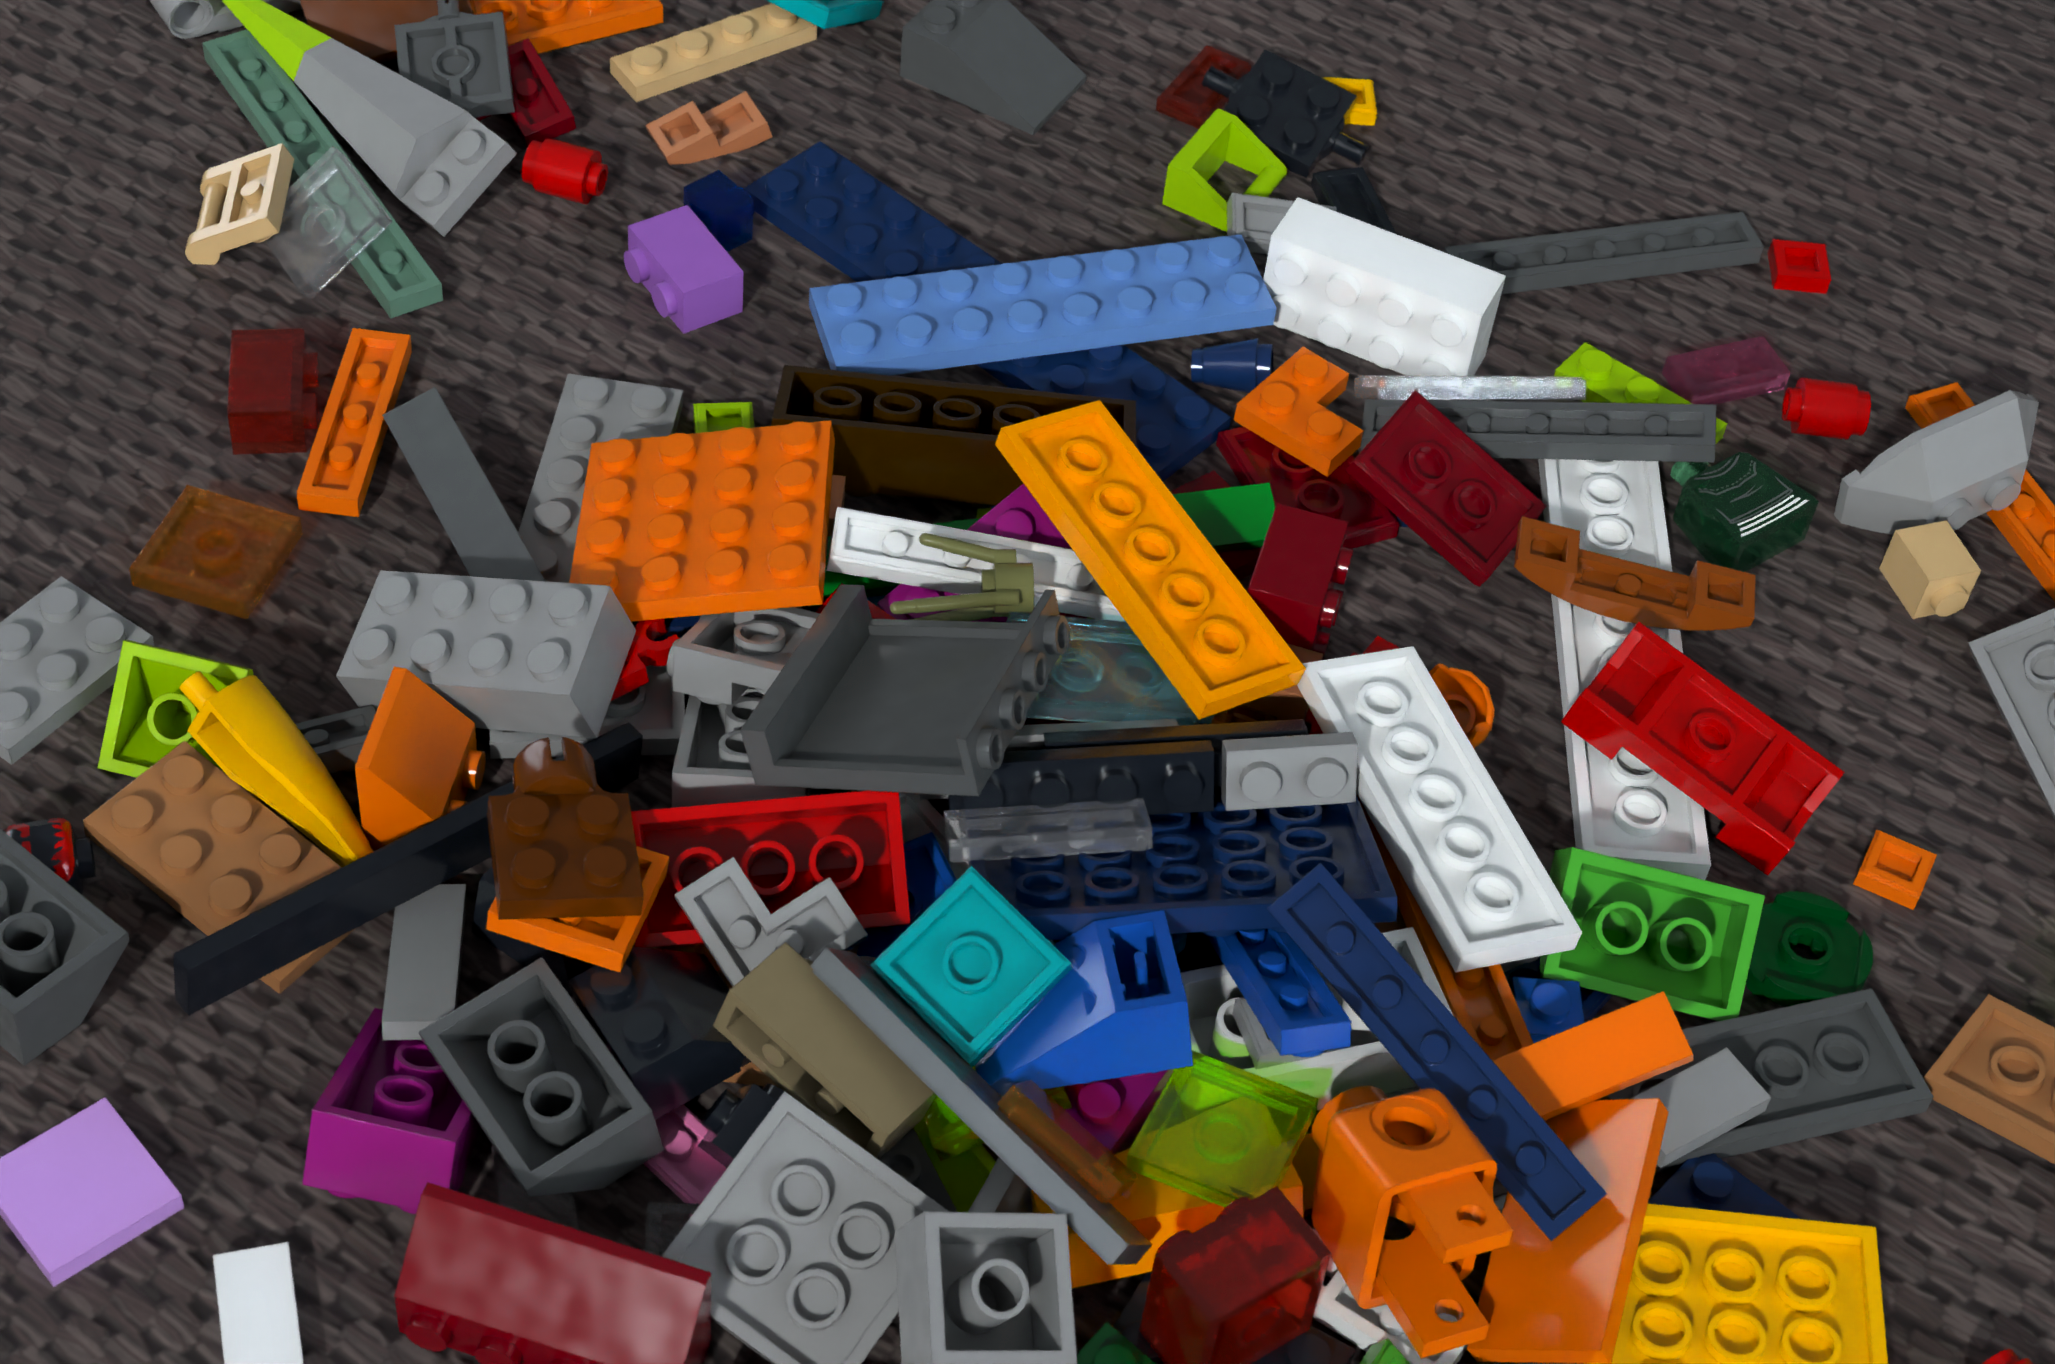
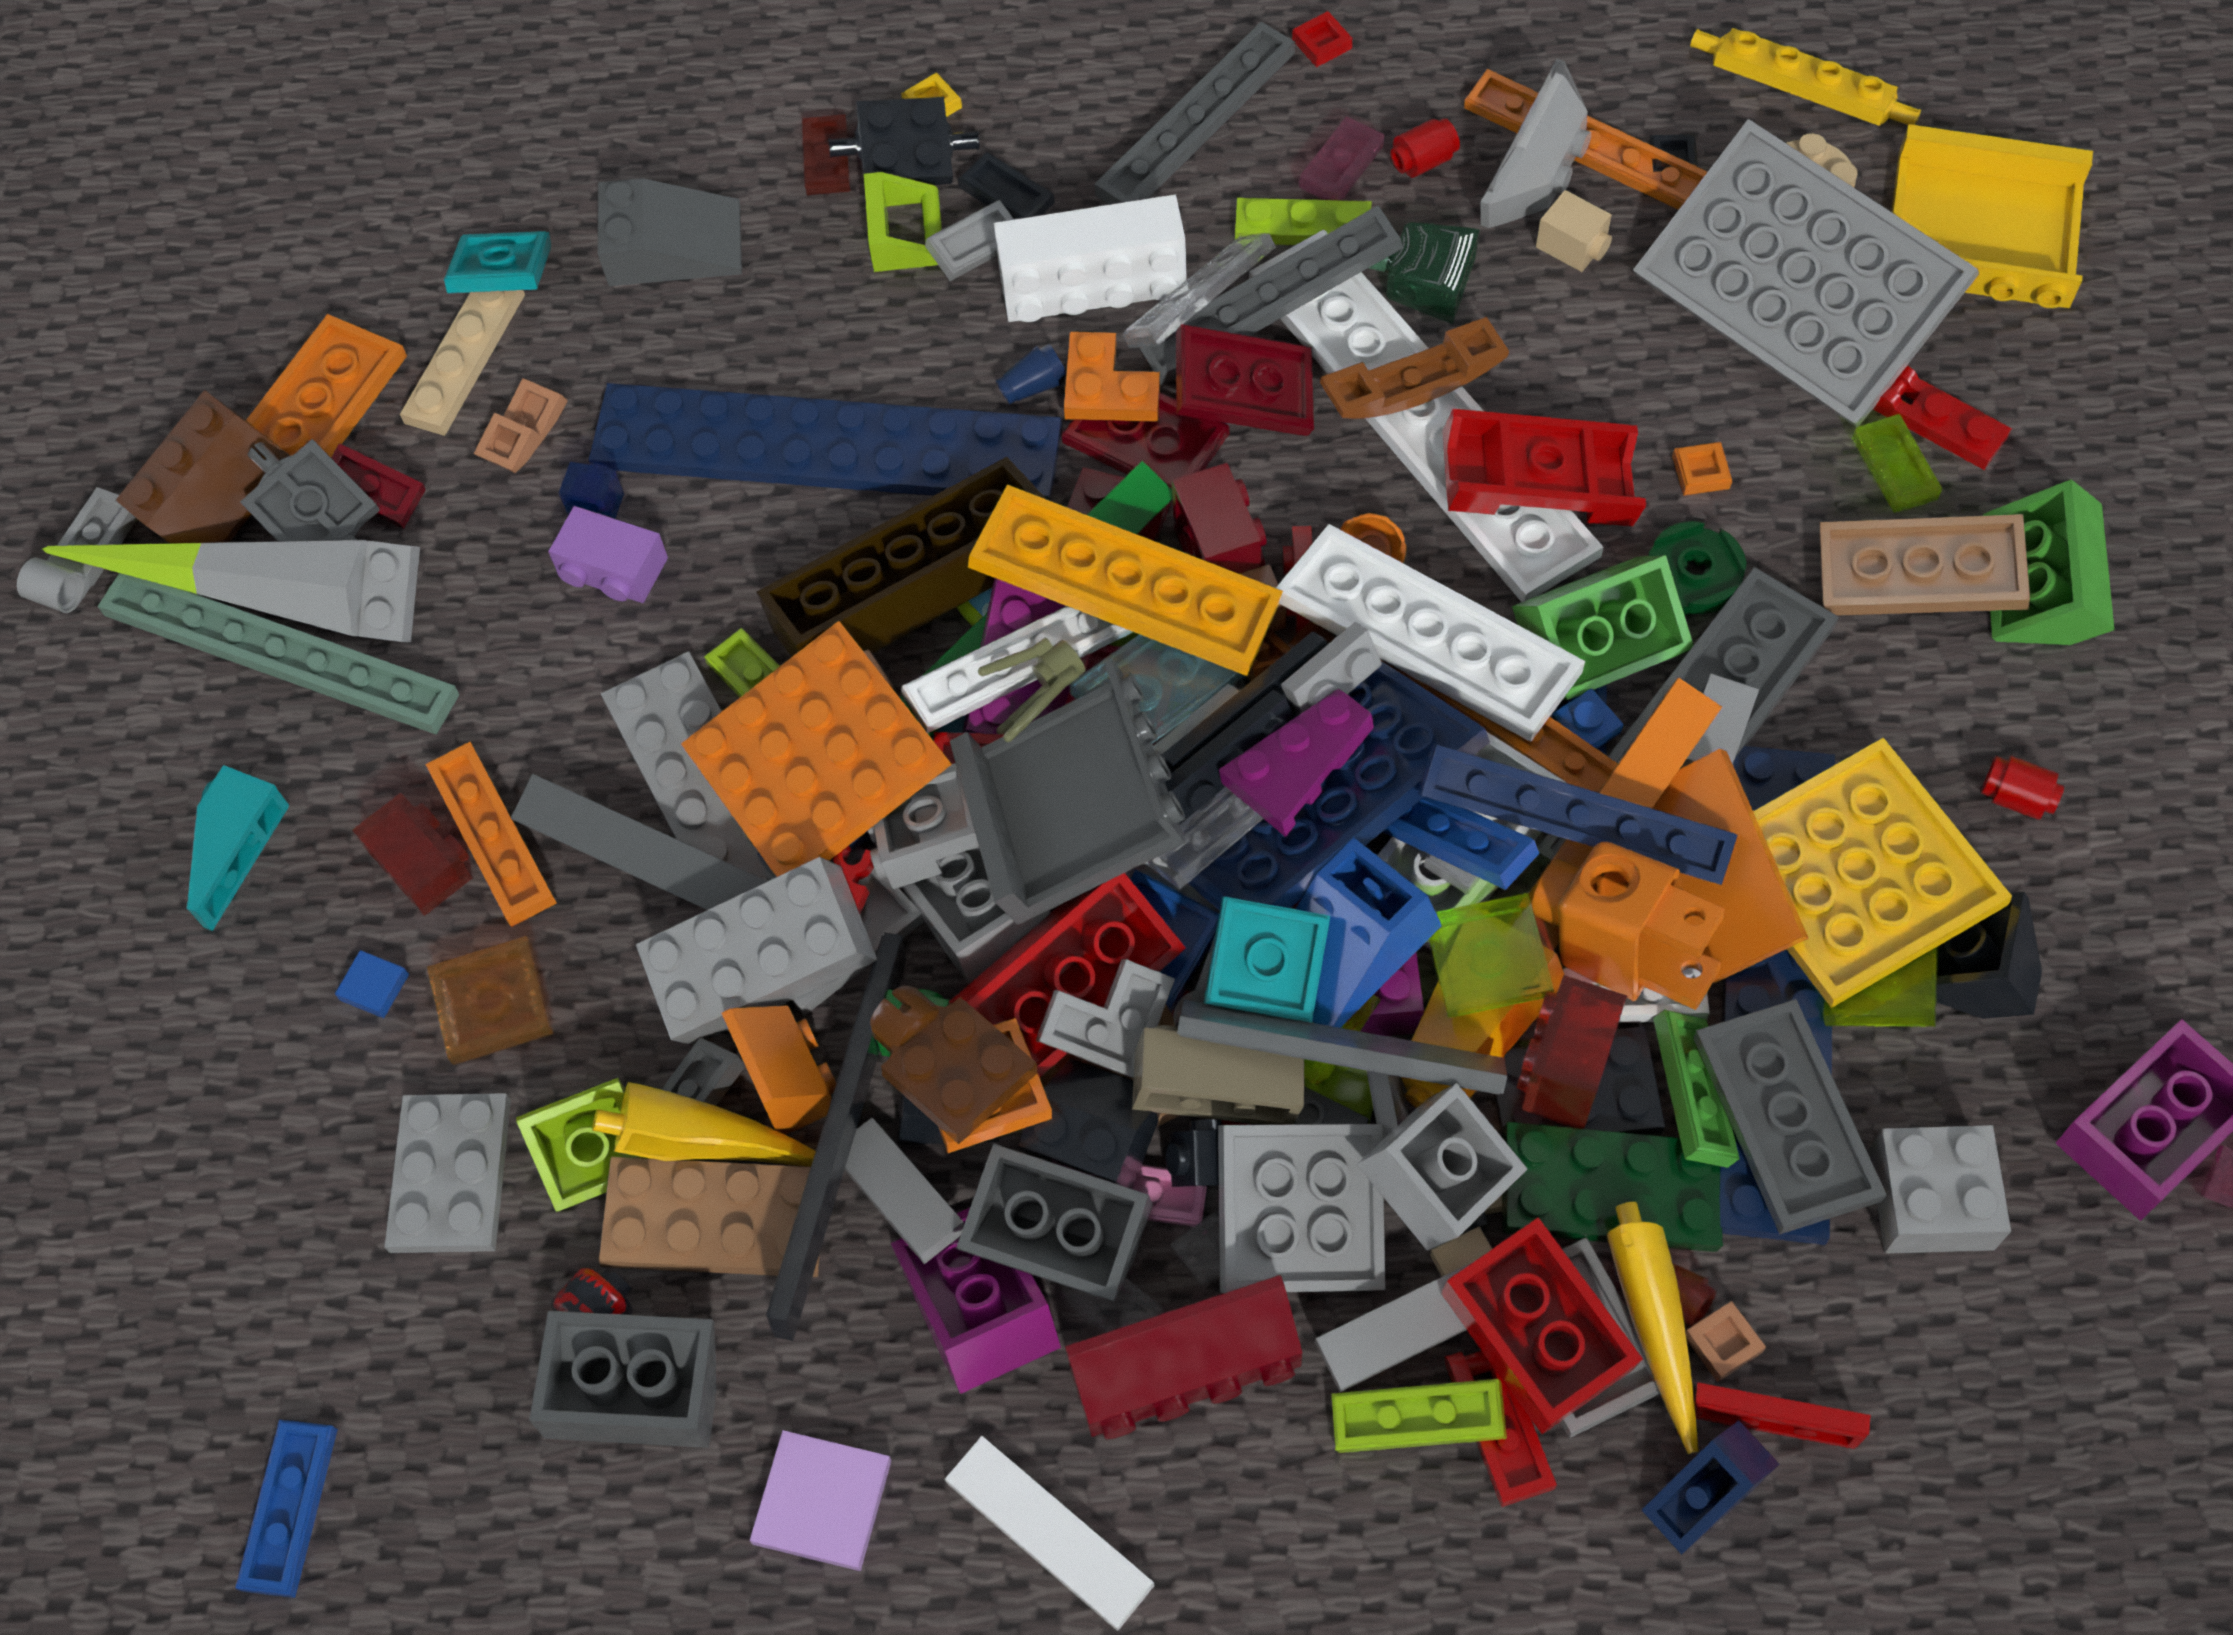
camera: 25 degrees left, 15 degrees up
(121, 281) = (229, 834): none -> teal slope
(130, 474) = (372, 984): none -> blue tile
(240, 203) = (263, 713): tan plate -> none
(326, 223) = (328, 696): clear tile -> none
(564, 170) = (454, 532): red brick -> none
(1041, 307) = (874, 422): medium blue plate -> none
(1066, 1141) = (1410, 1031): clear orange tile -> none
(1159, 813) = (1295, 759): none -> magenta wing

